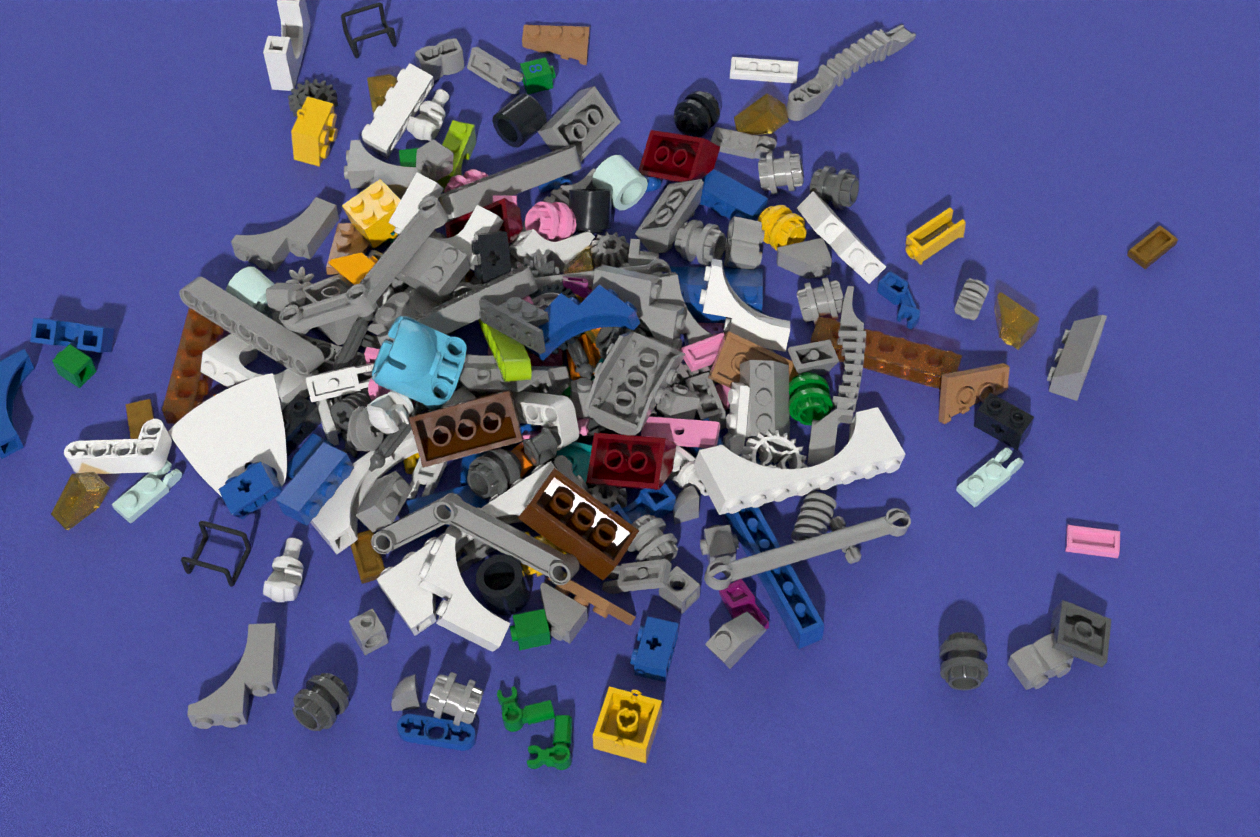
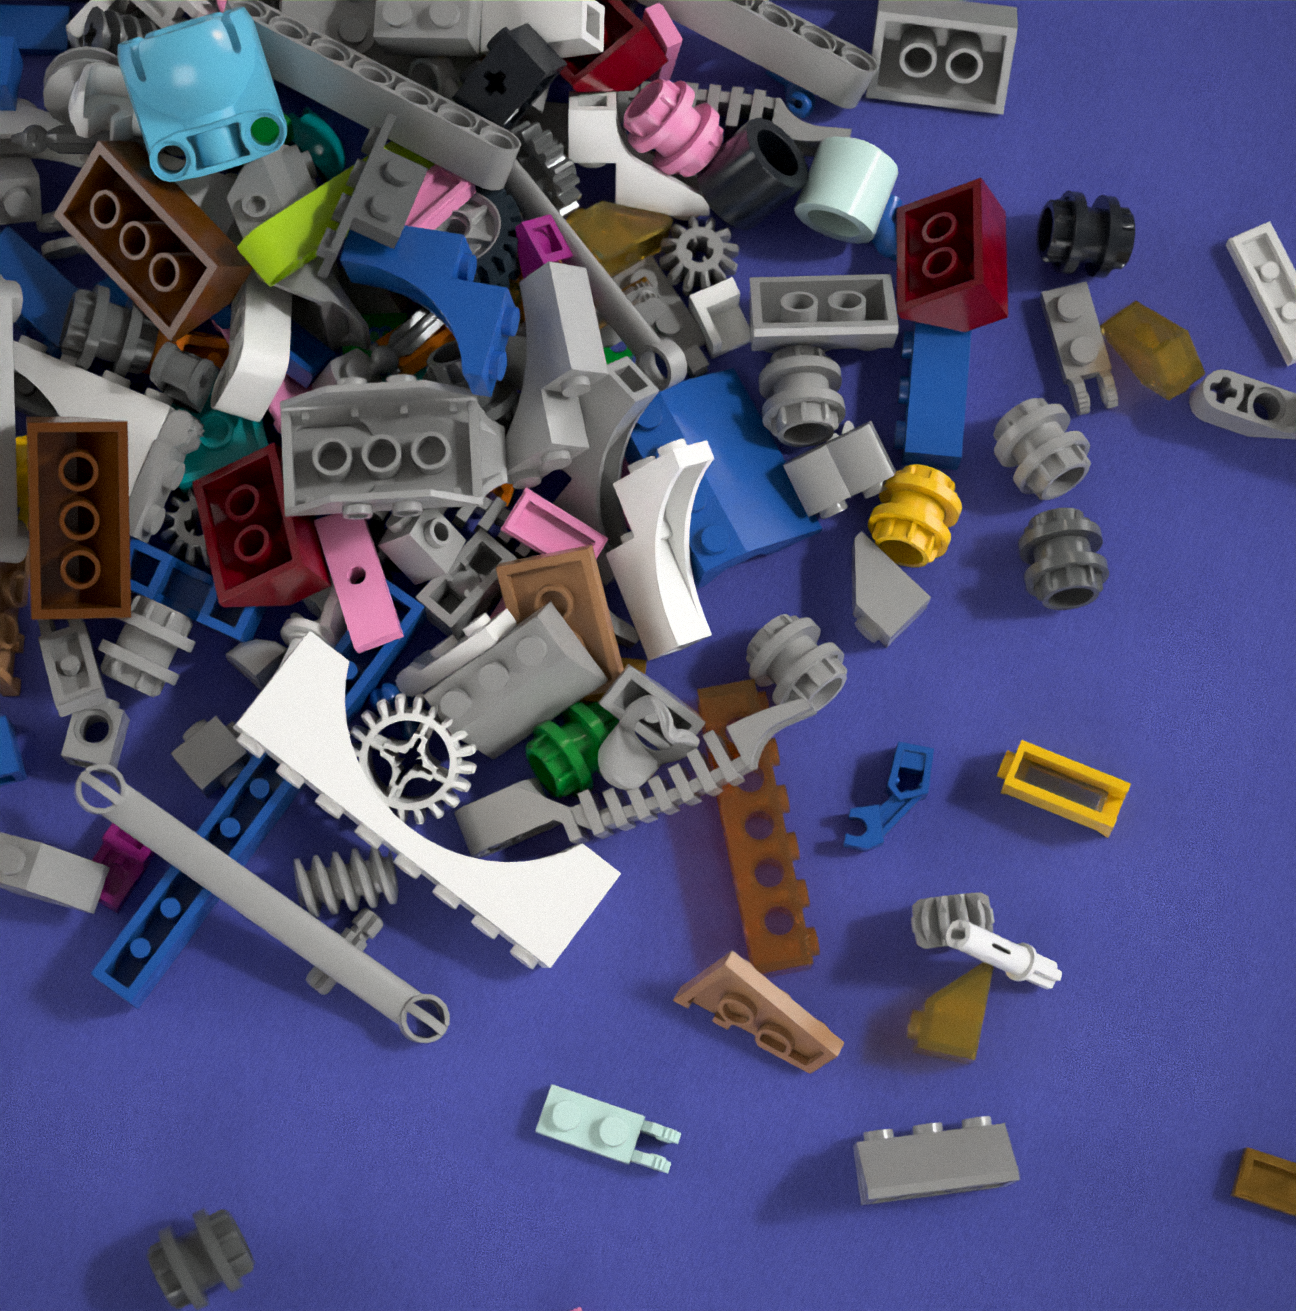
camera: 55 degrees right, 20 degrees up
(828, 374) = (626, 760): none -> light grey piece
(840, 237) = (951, 602): white arch -> none
(1003, 284) = (1017, 960): none -> white axle
(1003, 421) = (725, 1100): black brick -> none

